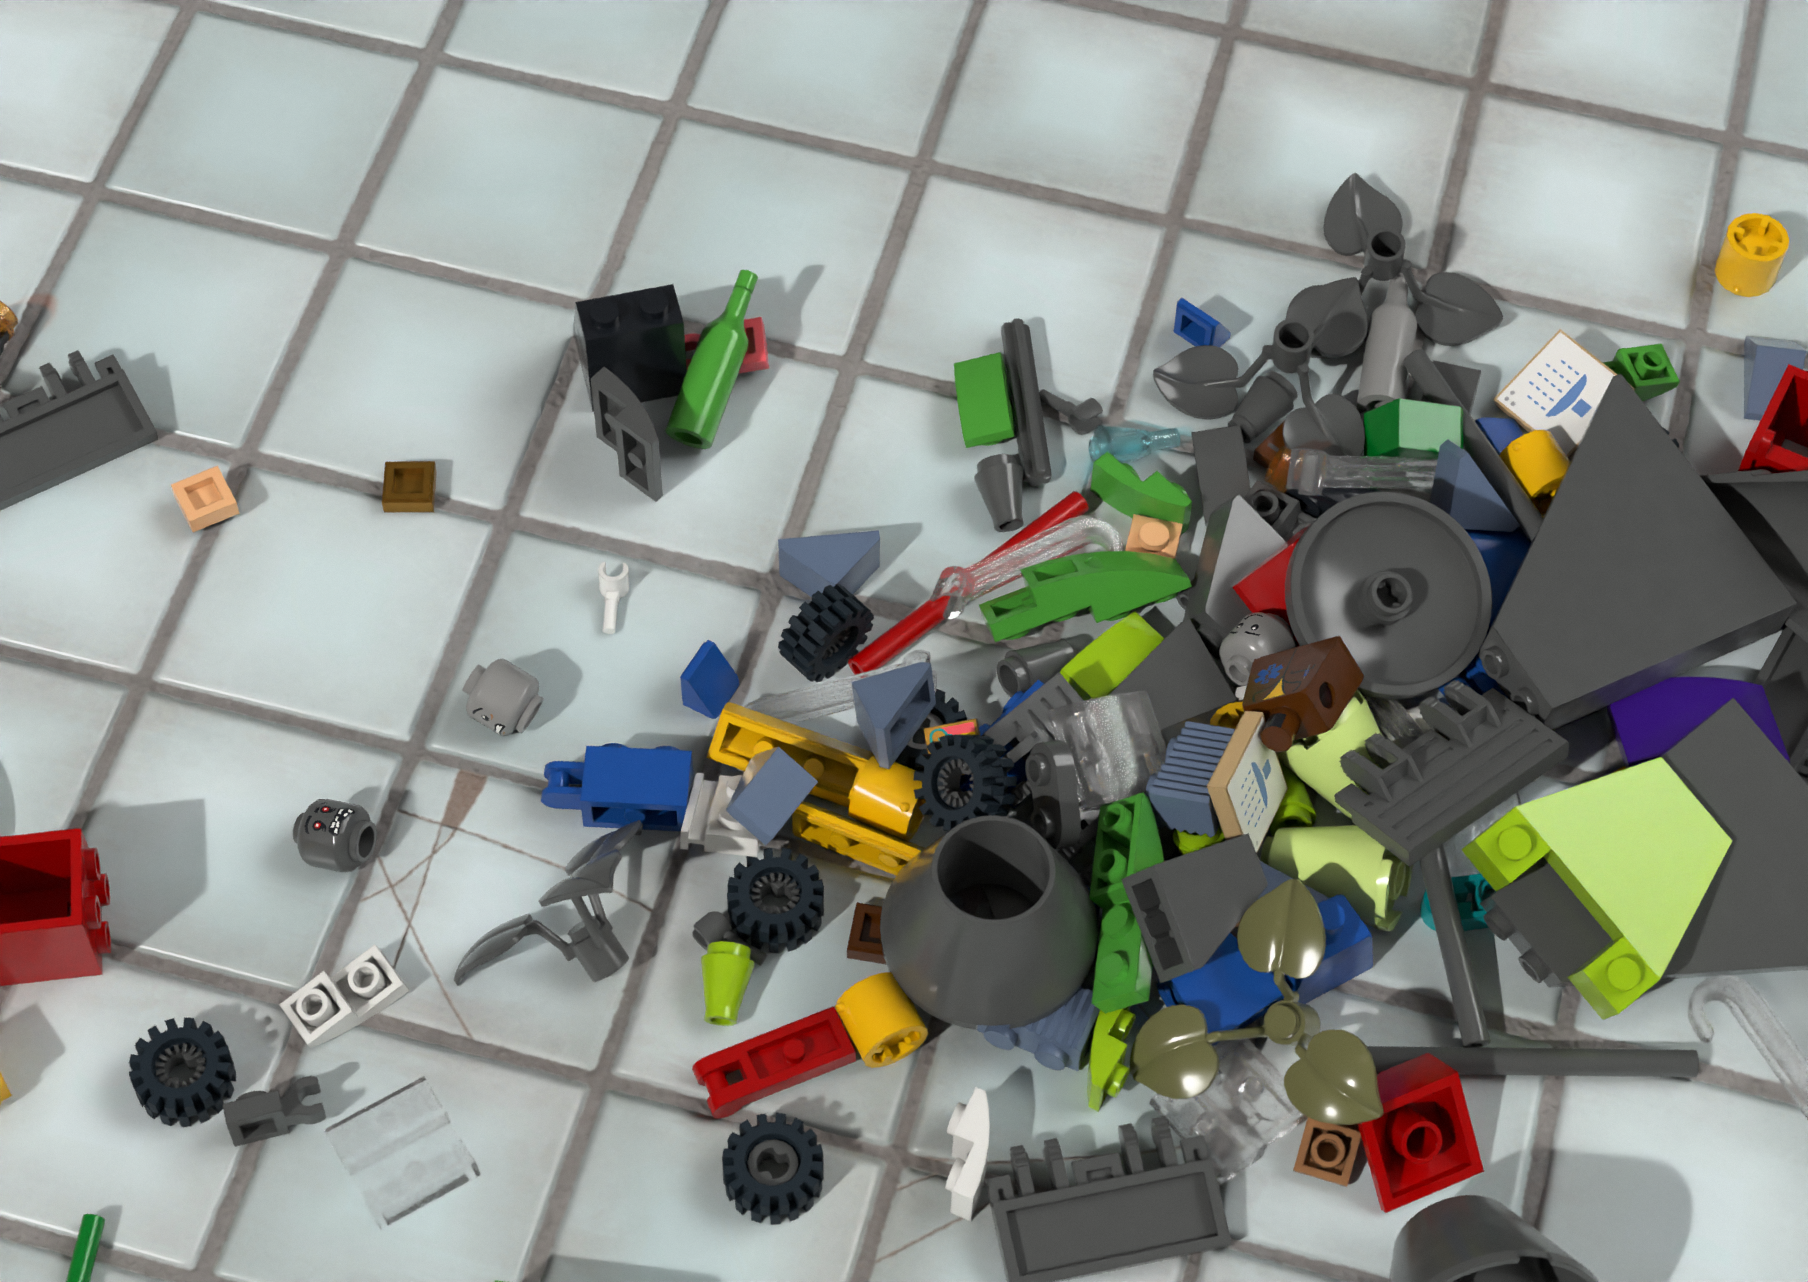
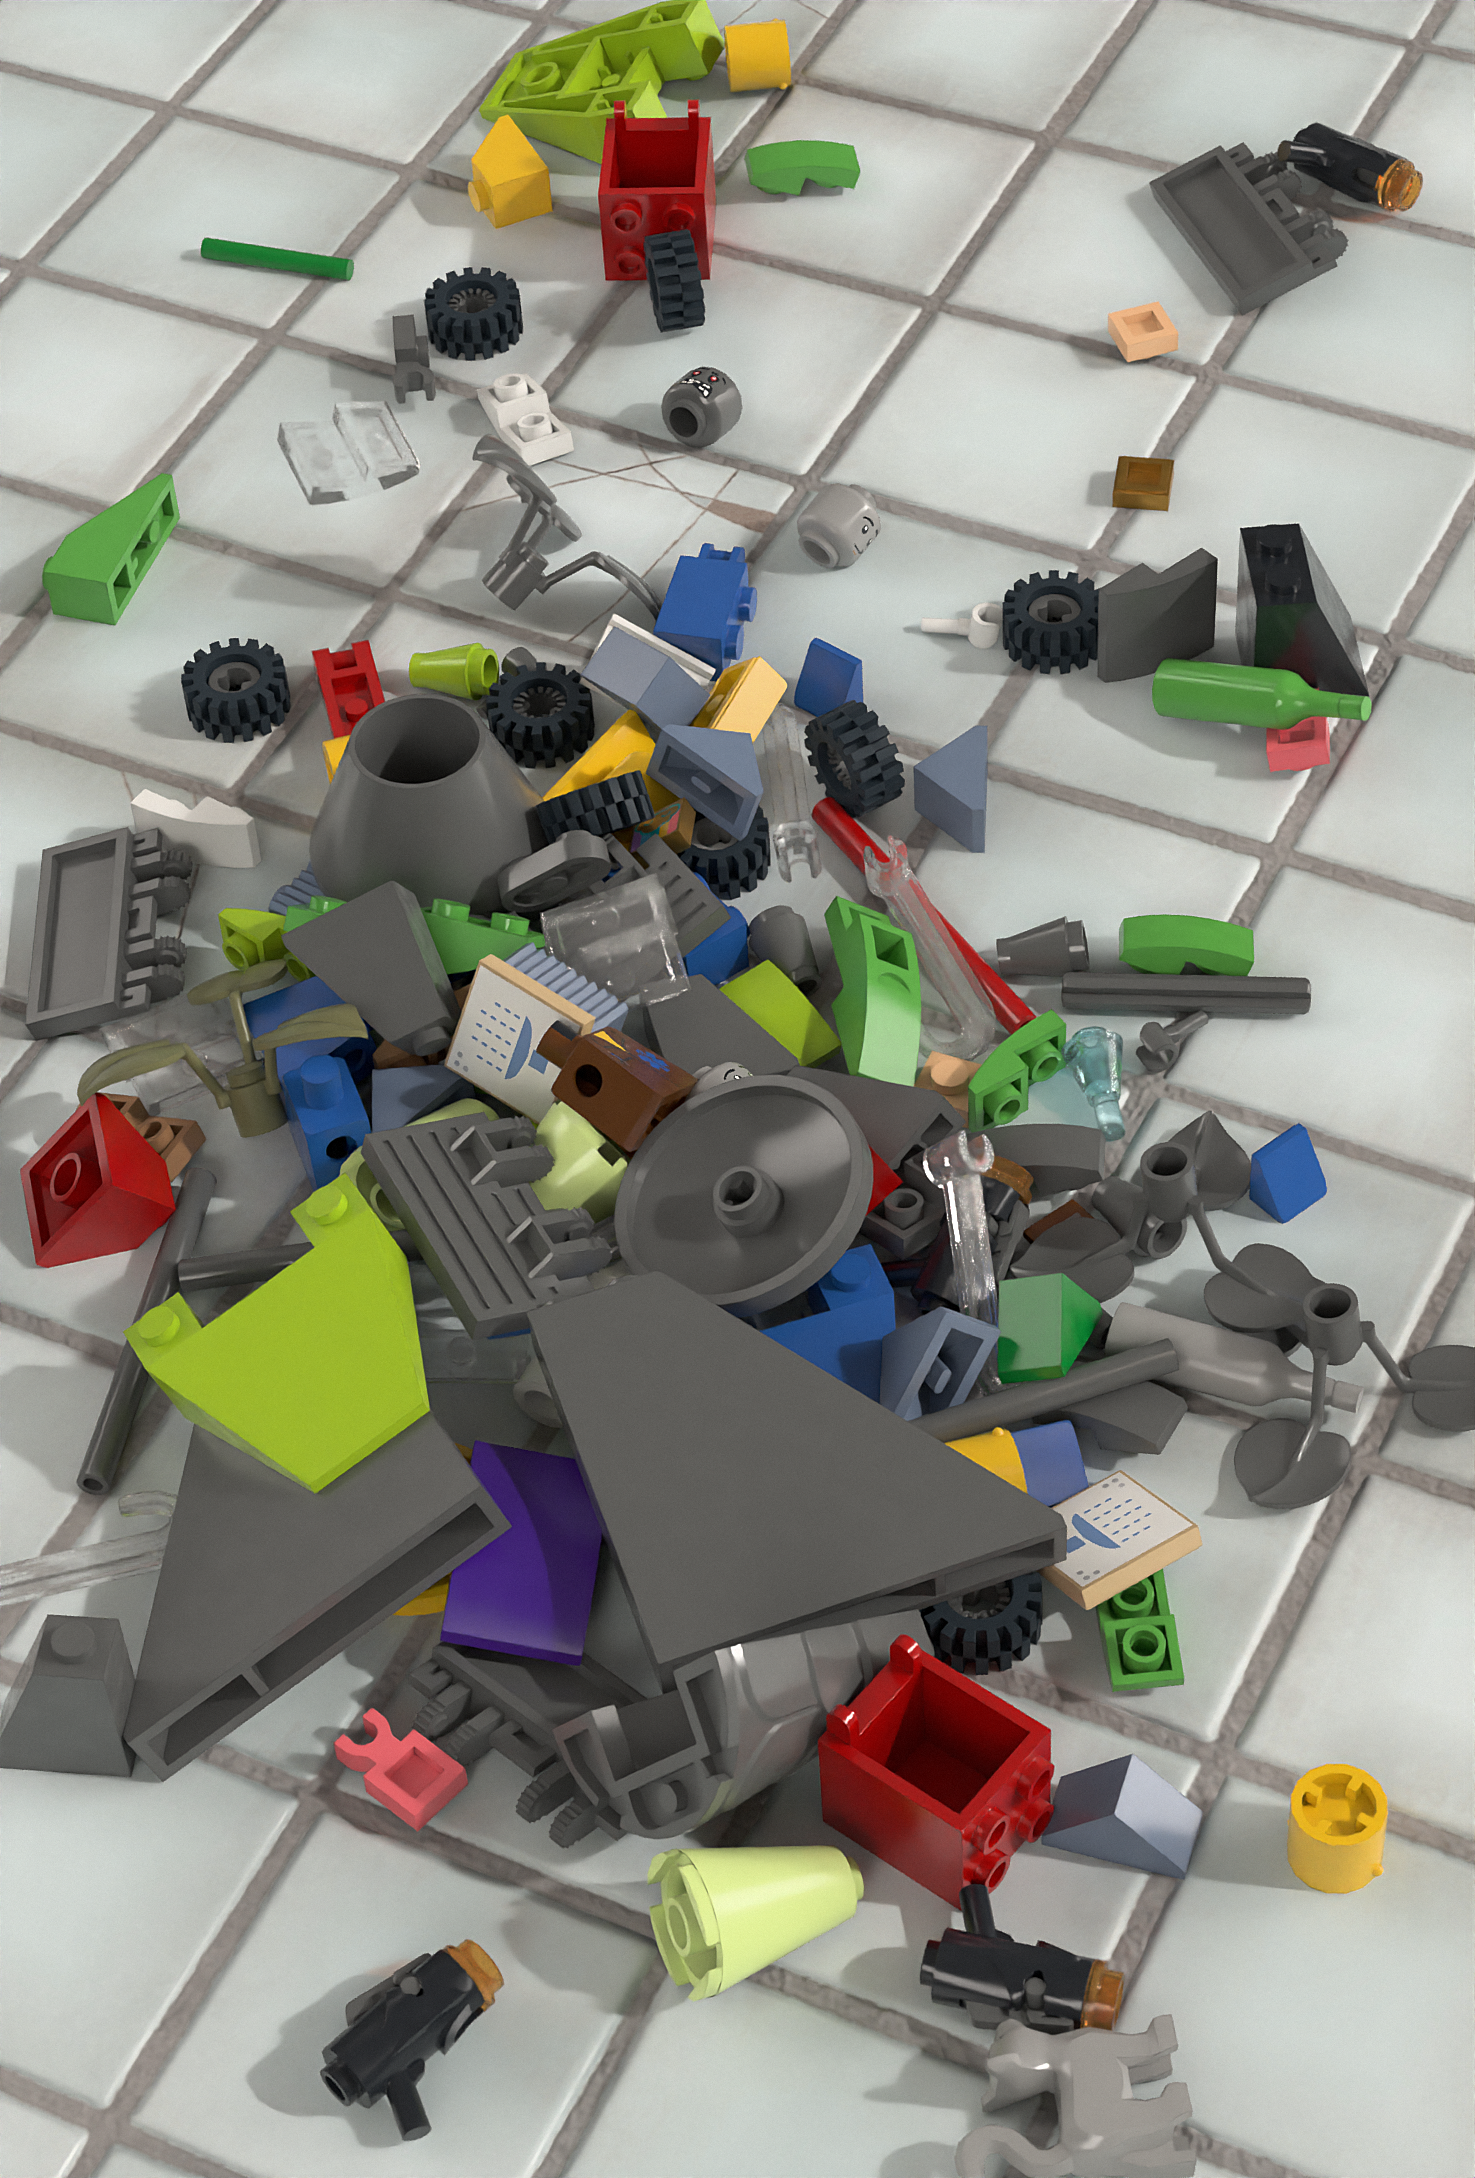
camera: 105 degrees right, 10 degrees down
(157, 876) = (674, 280): none -> black bush
(594, 541) = (1047, 643): none -> black bush

